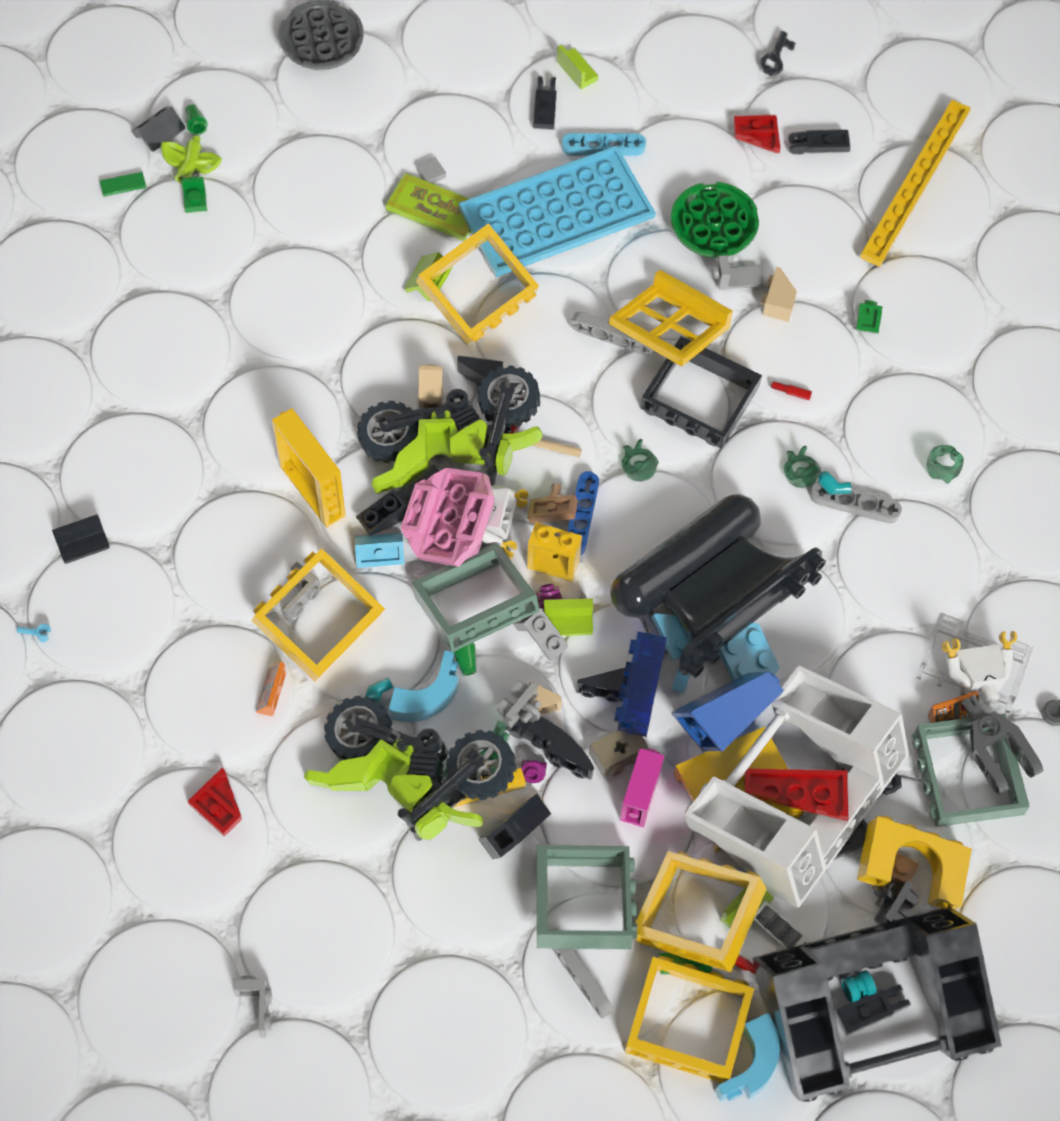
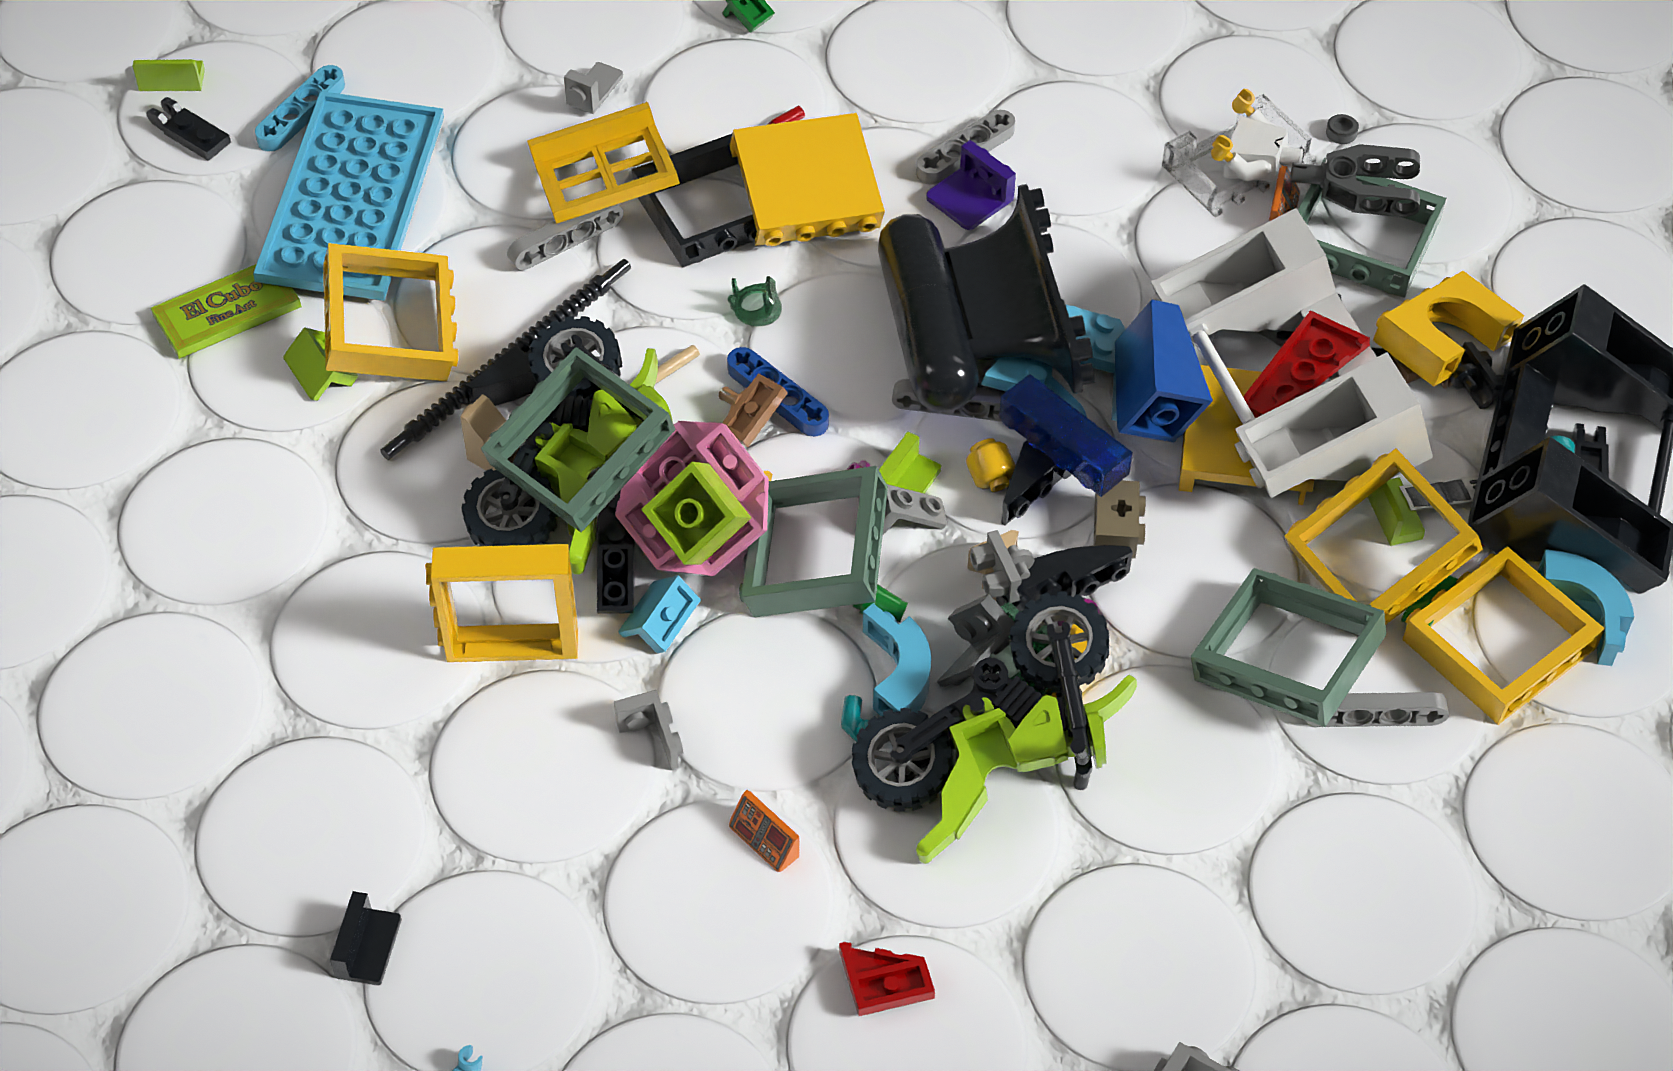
camera: 55 degrees left, 10 degrees down
(285, 644) = (705, 775): yellow window -> none
(431, 171) = (171, 283): light grey tile -> none
(431, 522) = (696, 513): none -> lime slope
(434, 464) = (616, 470): none -> sand green window
(474, 722) = (985, 628): none -> dark grey bracket
(514, 827) = (1157, 675): black slope -> none
(545, 546) = (829, 447): yellow window -> none
(588, 374) = (415, 429): none -> black hose
(607, 657) = (990, 464): none -> yellow head
(642, 787) = (1188, 515): dark pink brick -> none
(726, 207) = (506, 61): green brick -> none
(744, 430) = (808, 179): none -> yellow panel
(780, 298) = (654, 64): tan slope -> none
(803, 476) = (902, 171): clear green piece -> none
(818, 526) = (975, 189): none -> dark purple bracket
(832, 486) = (934, 148): teal arm -> none
(942, 472) = (989, 54): clear green piece -> none

